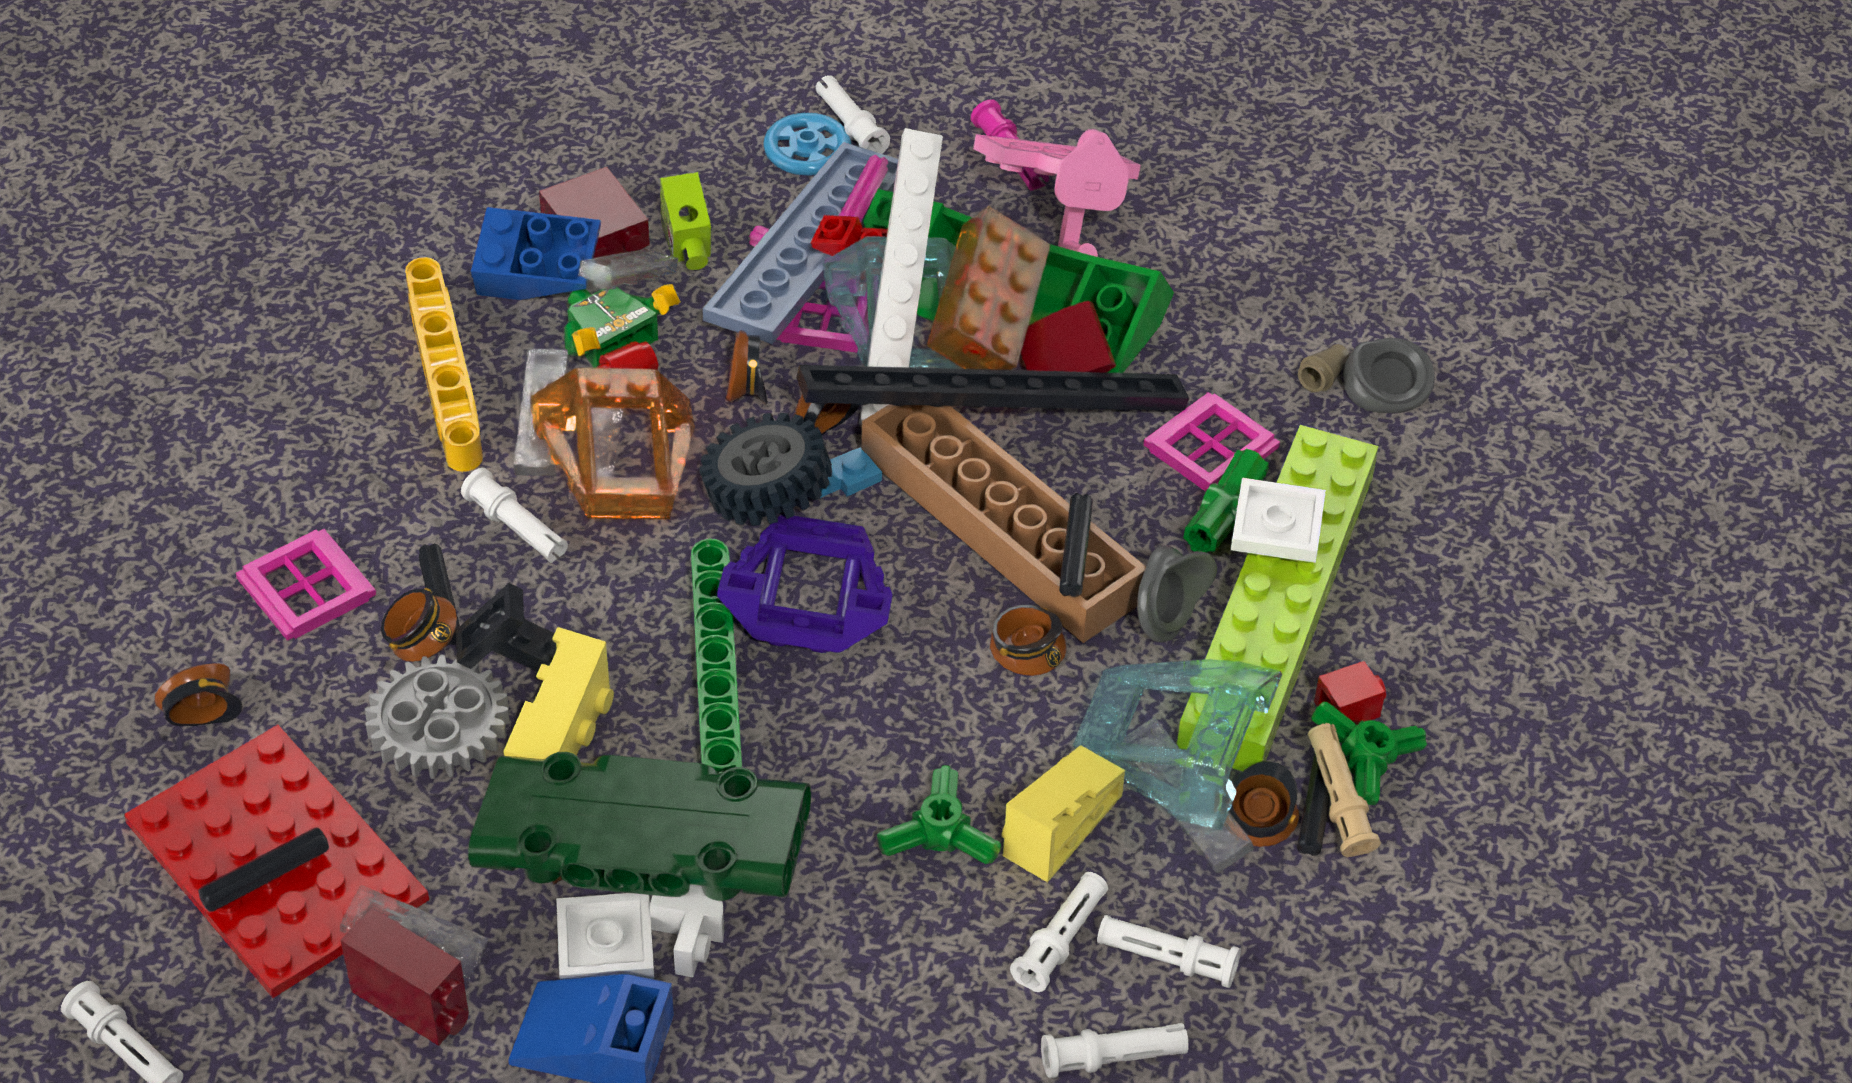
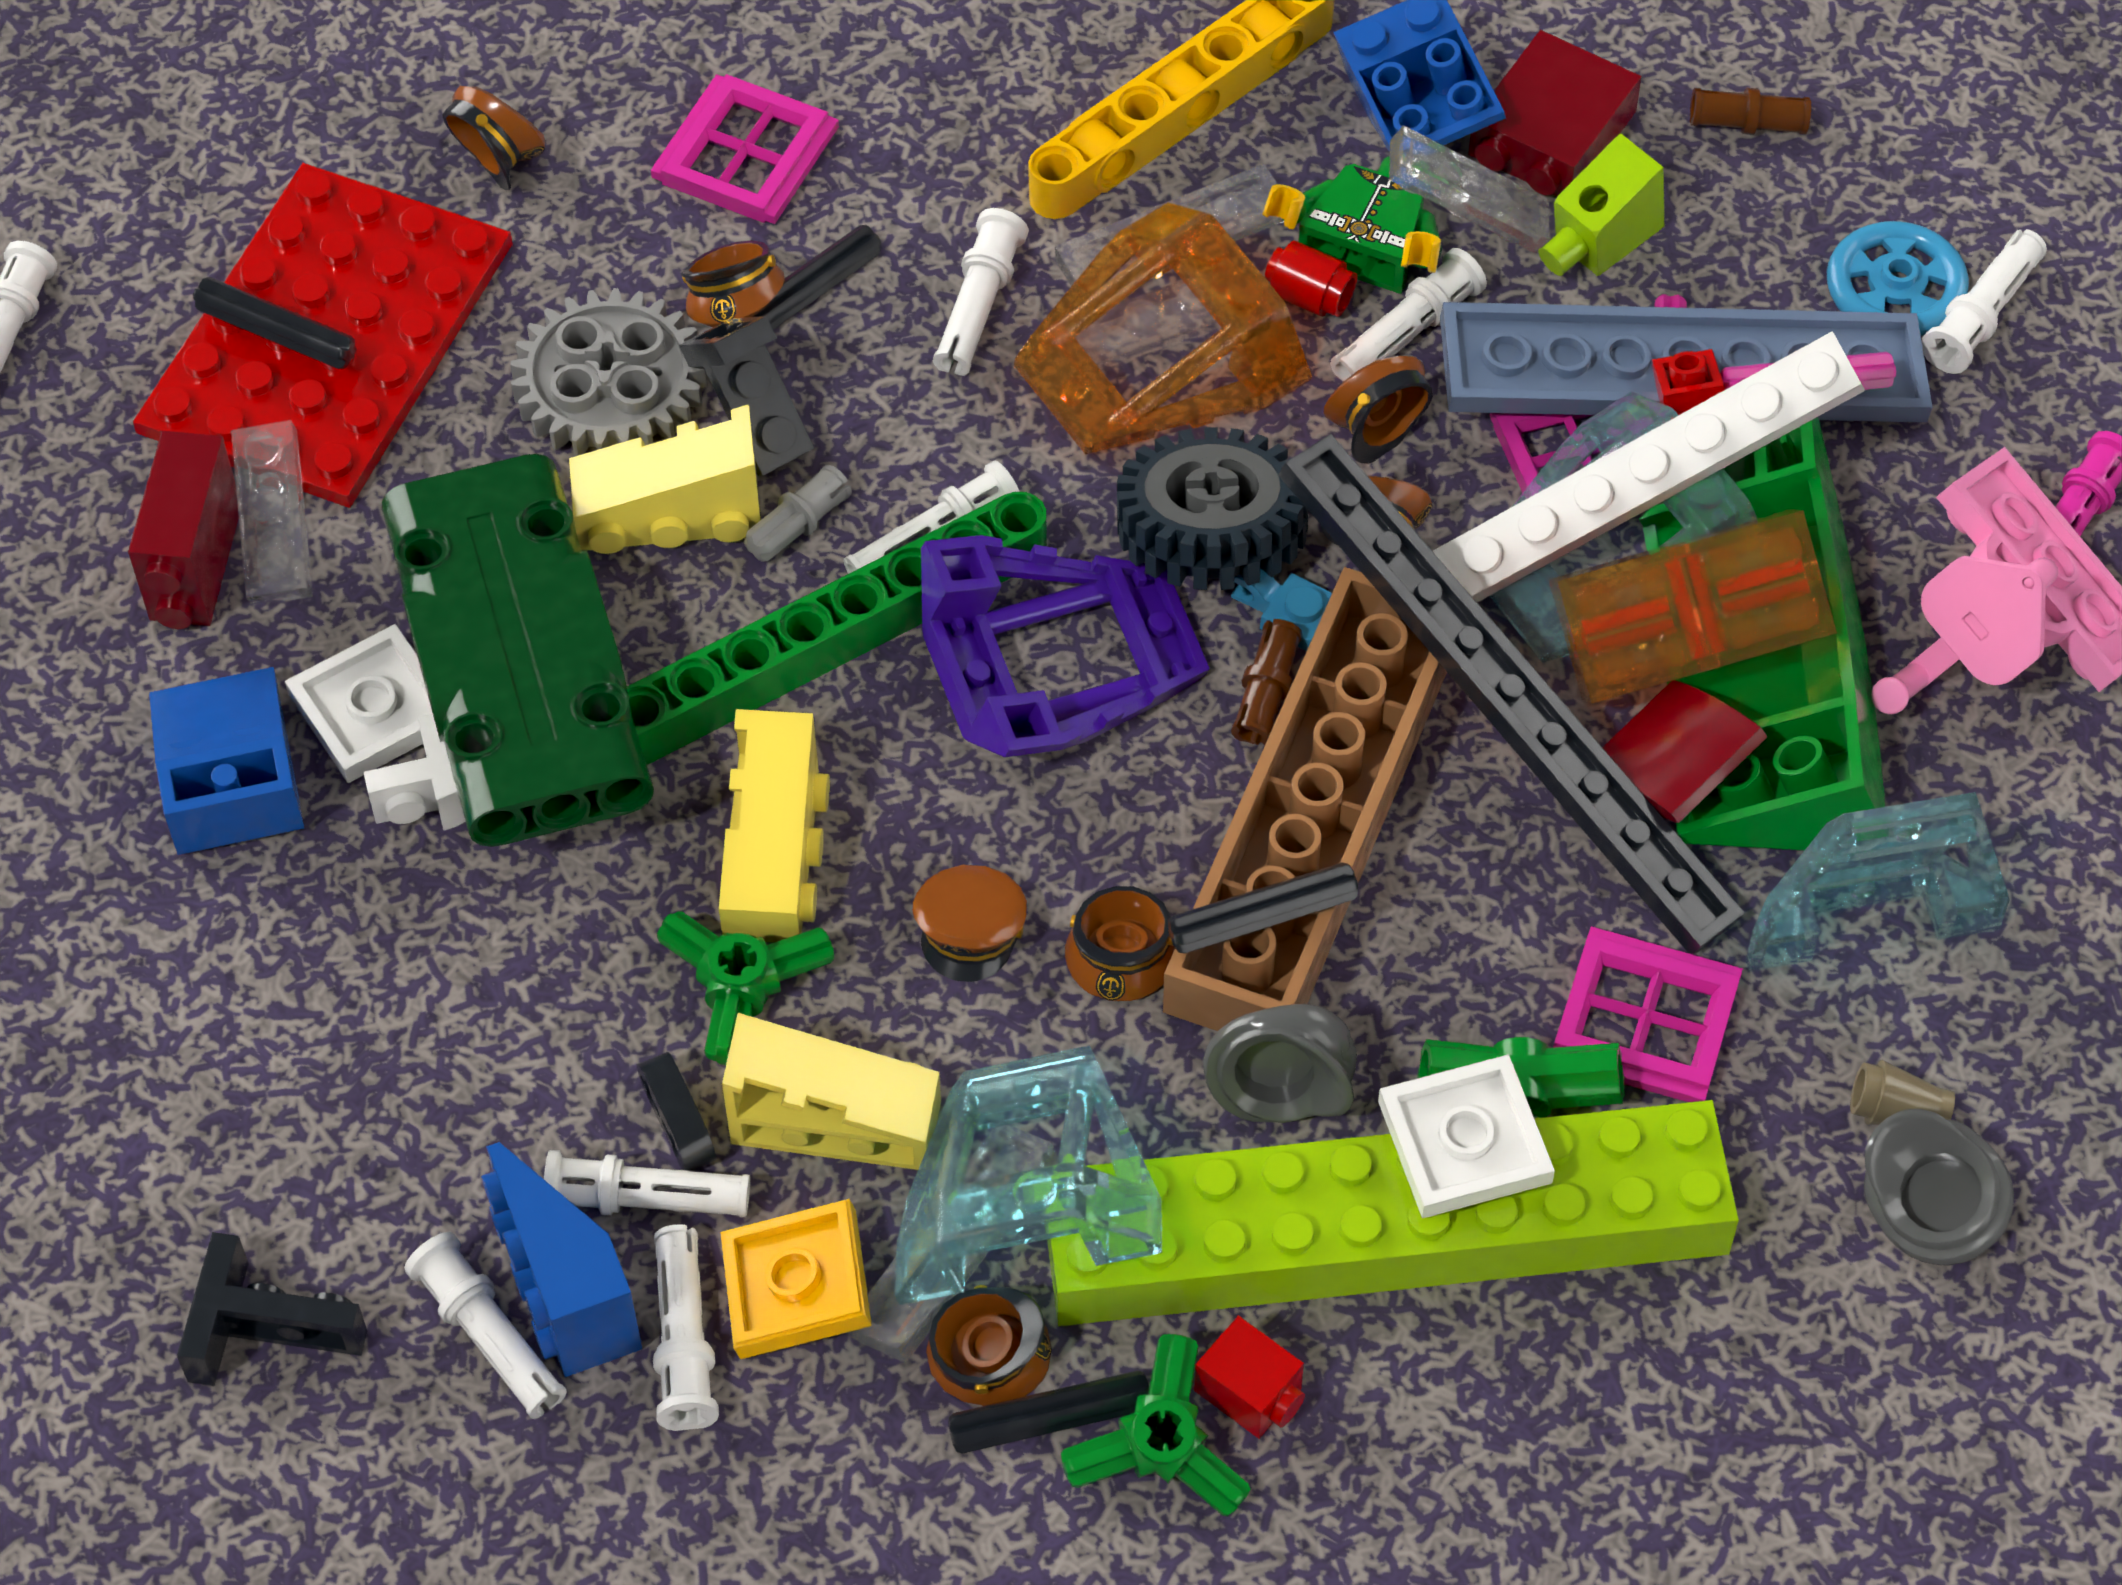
camera: 65 degrees right, 10 degrees up
(619, 667) = (797, 513): none -> light grey axle
(652, 145) = (1750, 111): none -> reddish brown pin
(673, 591) = (952, 505): none -> white pin
(682, 327) = (1452, 282): none -> white pin
(851, 760) = (773, 826): none -> light yellow wedge
(894, 503) = (1266, 681): none -> reddish brown pin
(970, 701) = (969, 920): none -> dark orange piece
(1018, 892) = (676, 1111): none -> black beam
(1103, 979) = (561, 1268): none -> blue slope
(1169, 878) = (795, 1279): none -> yellow tile
(1213, 290) = (1883, 859): none -> clear light blue windscreen
(1347, 808) = (1033, 1451): tan pin -> none

